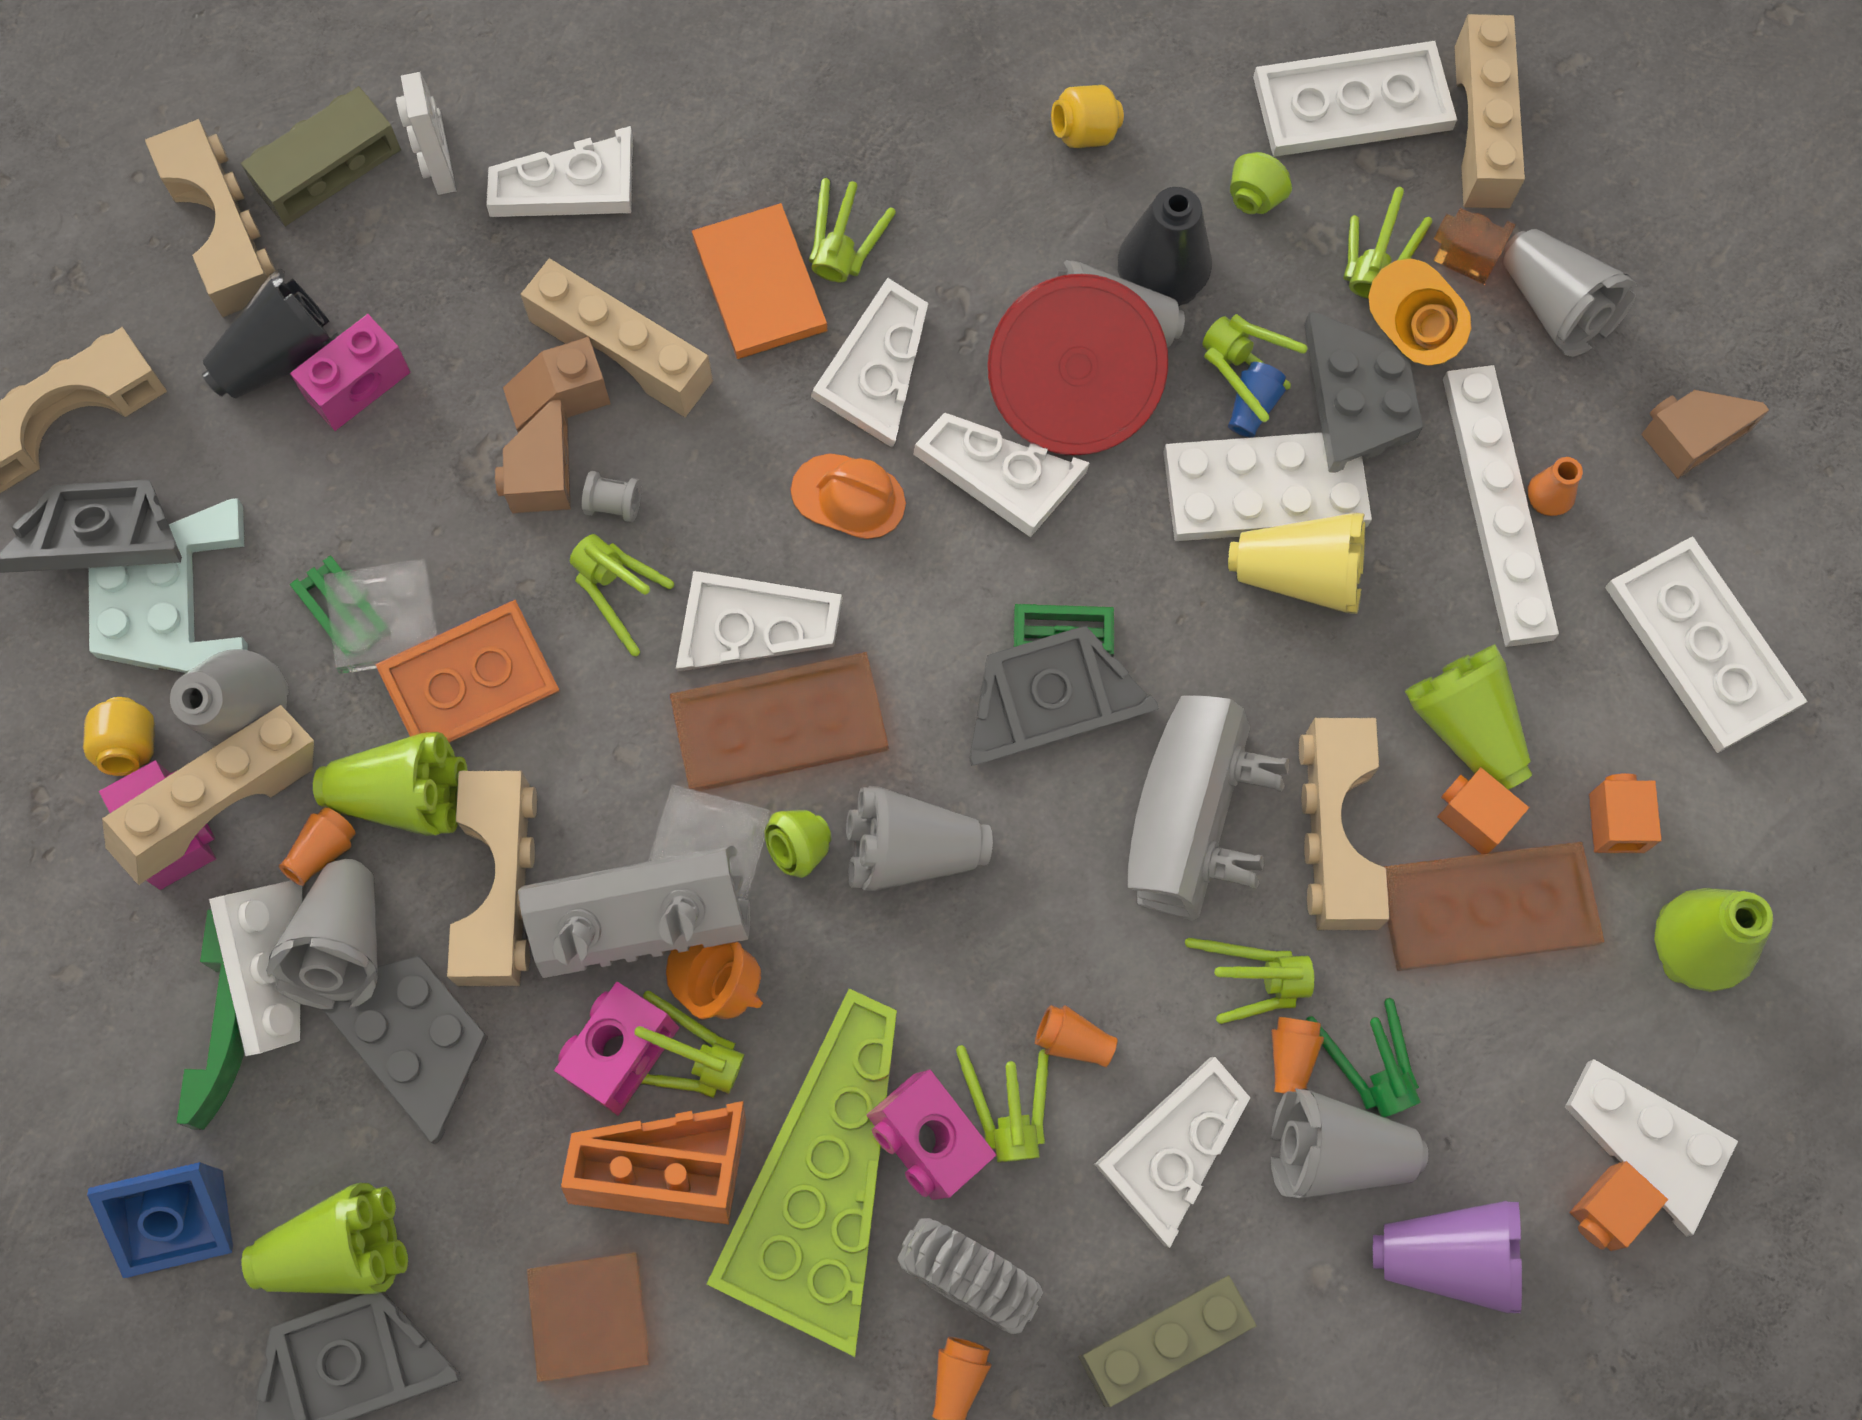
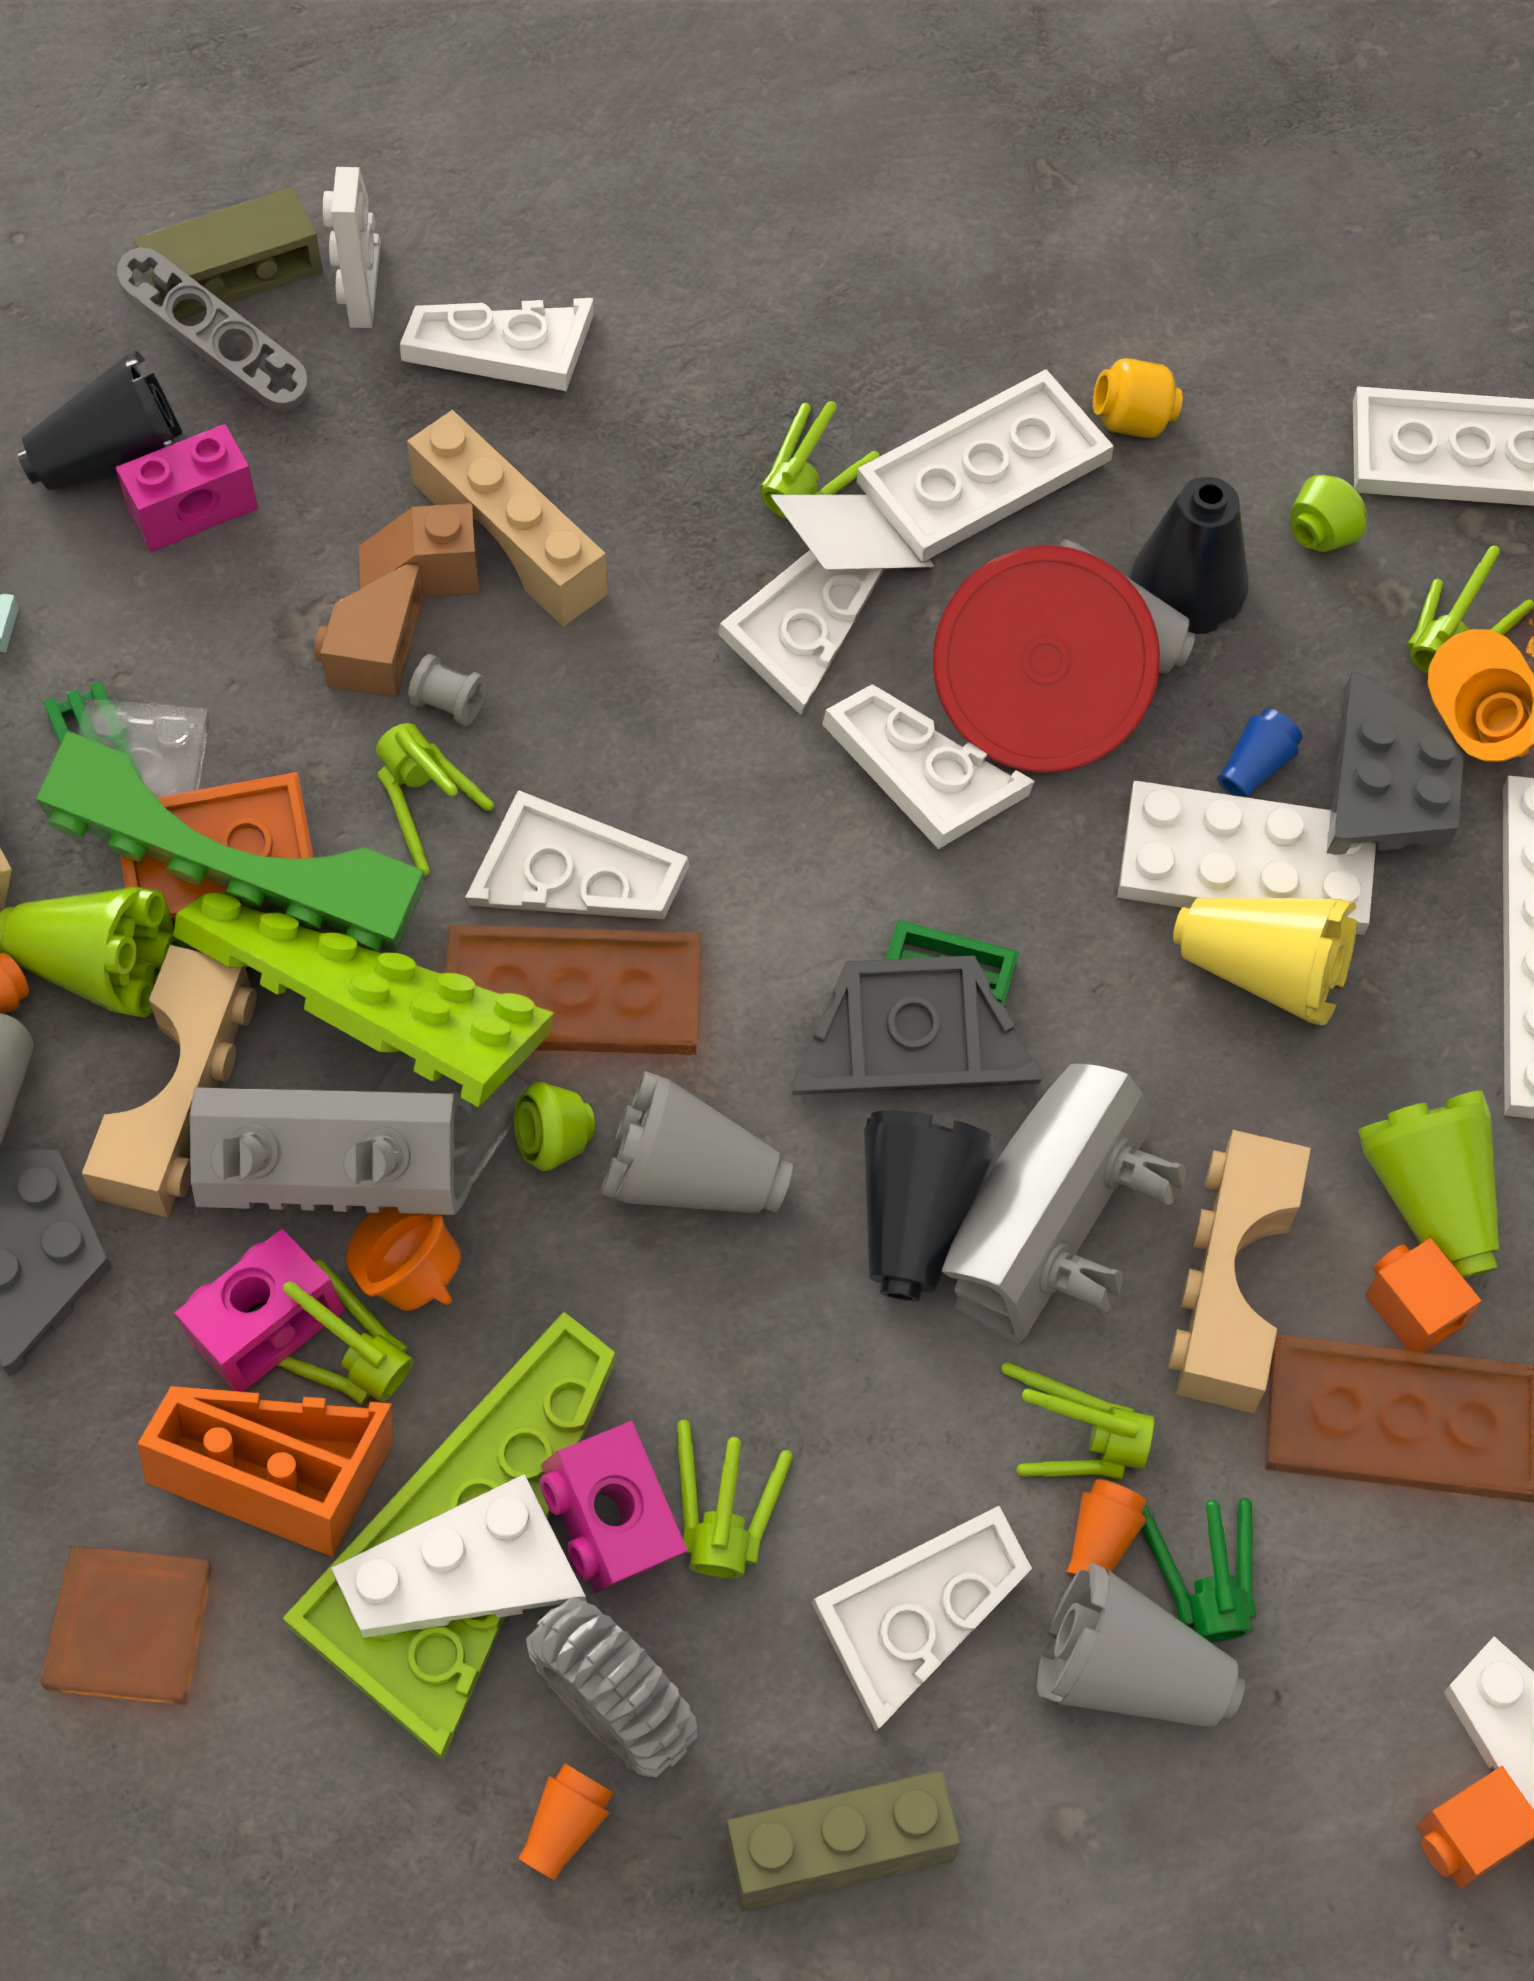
camera: 15 degrees right, 10 degrees down
(193, 173) = (79, 243): tan arch -> none
(333, 224) = (208, 334): none -> light grey beam
(371, 661) = (352, 892): none -> bright green arch
(637, 776) = (375, 995): none -> lime wing
(759, 281) = (695, 496): orange tile -> none
(832, 1208) = (461, 1565): none -> white wing
(848, 495) = (733, 755): orange piece -> none
(895, 287) = (847, 532): none -> white sticker
(981, 201) = (984, 465): none -> white plate
(1074, 1037) = (829, 1442): orange cone -> none
(1092, 831) = (918, 1195): none -> black cone
(1229, 343) = (1242, 682): lime plant -> none
(1457, 1255) = (1250, 1829): medium lavender cone -> none

